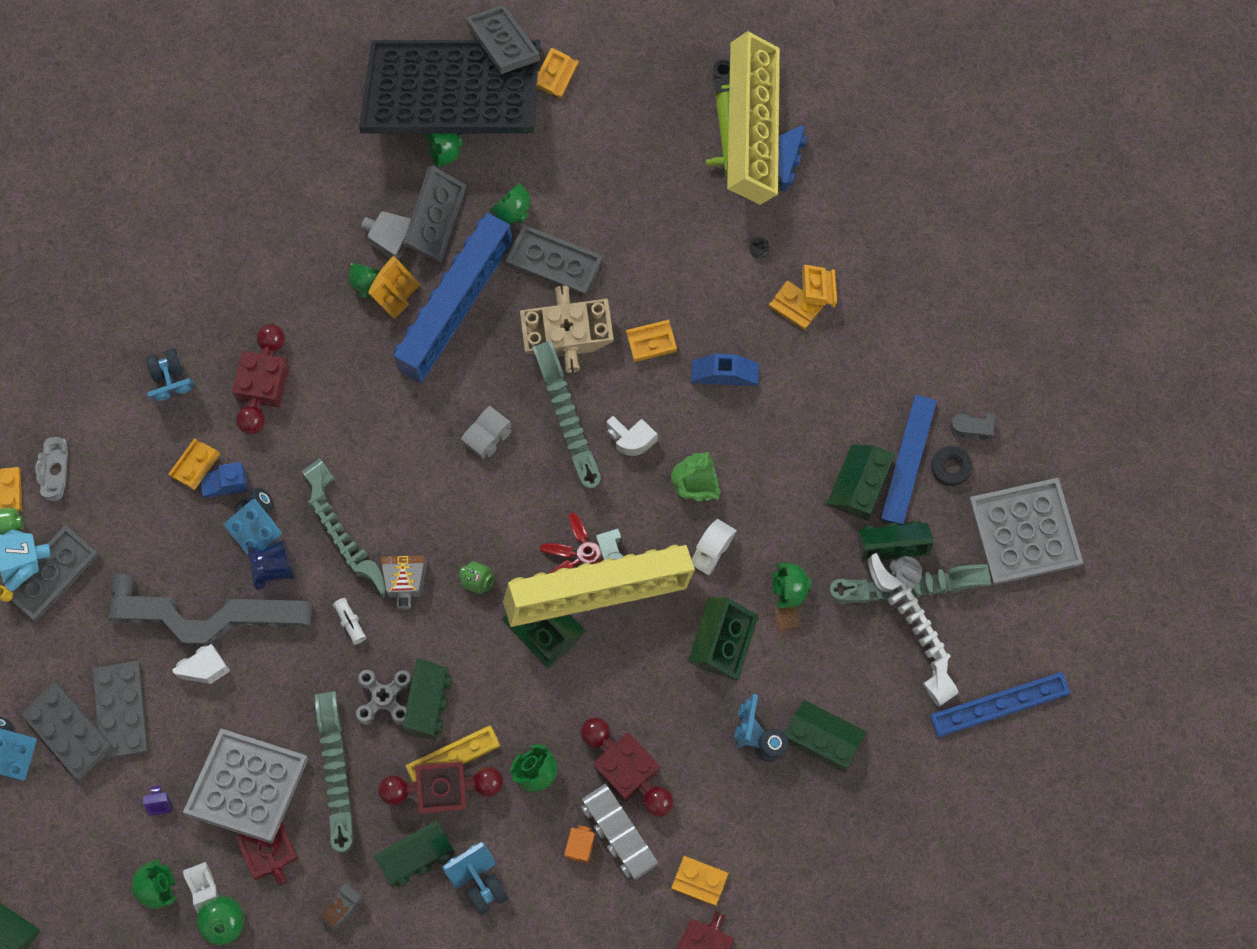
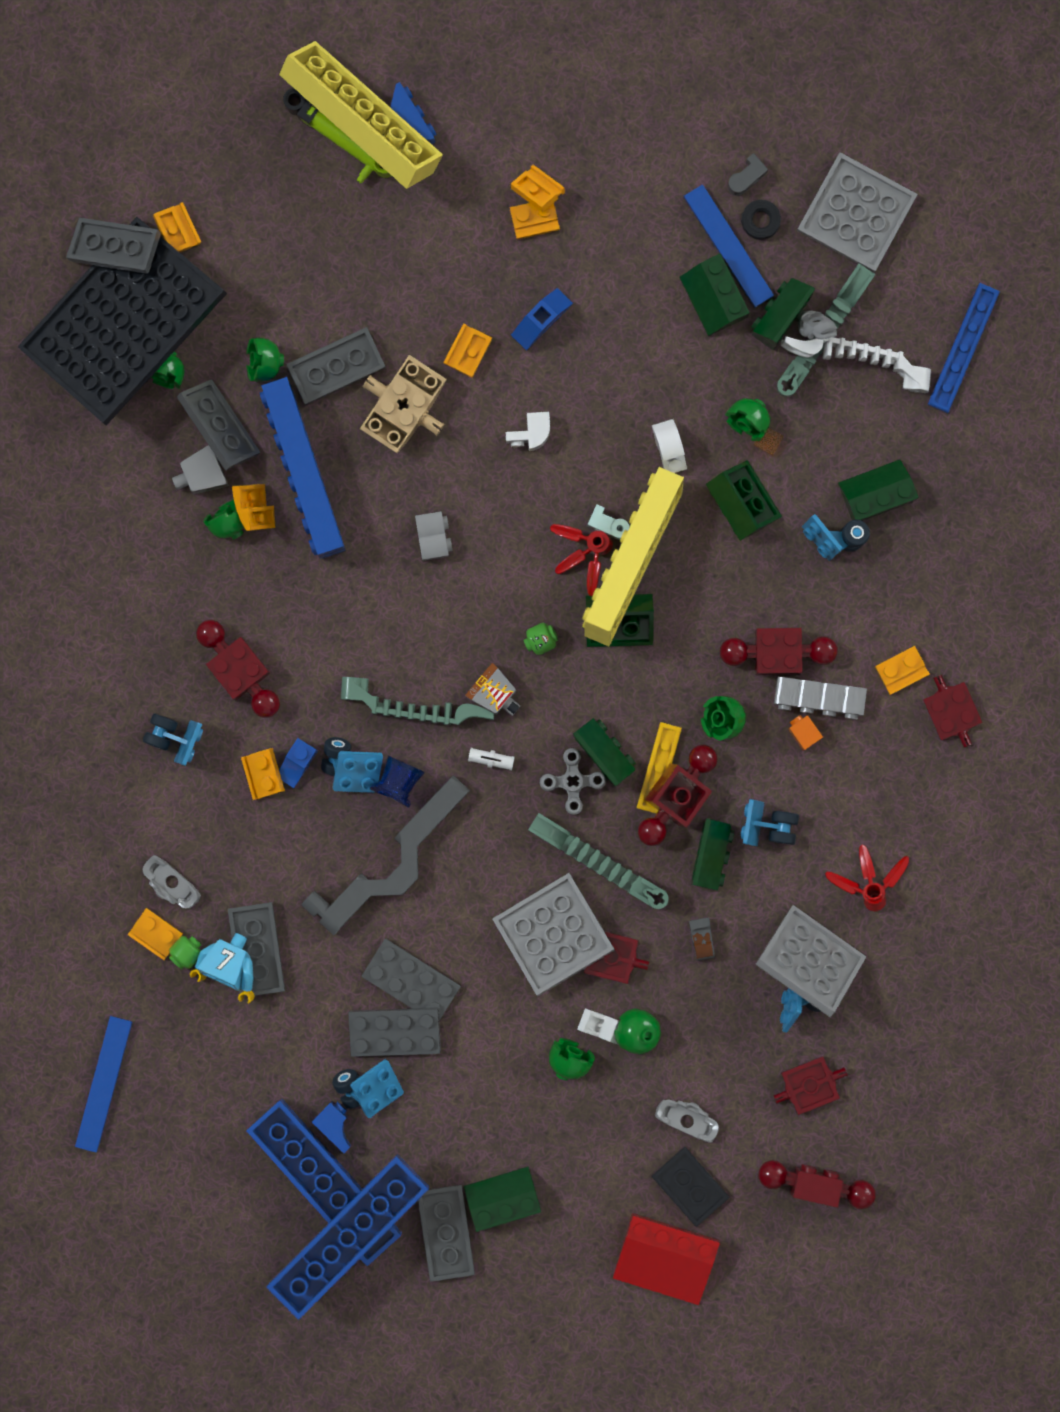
camera: 50 degrees left, 15 degrees up
(157, 802) = (508, 1008): dark purple tile -> none
(203, 667) = (433, 894): white slope -> none
(565, 411) = (477, 467): sand green piece -> none
(696, 478) = (608, 414): bright green hair -> none
(756, 241) = (460, 210): black bush -> none

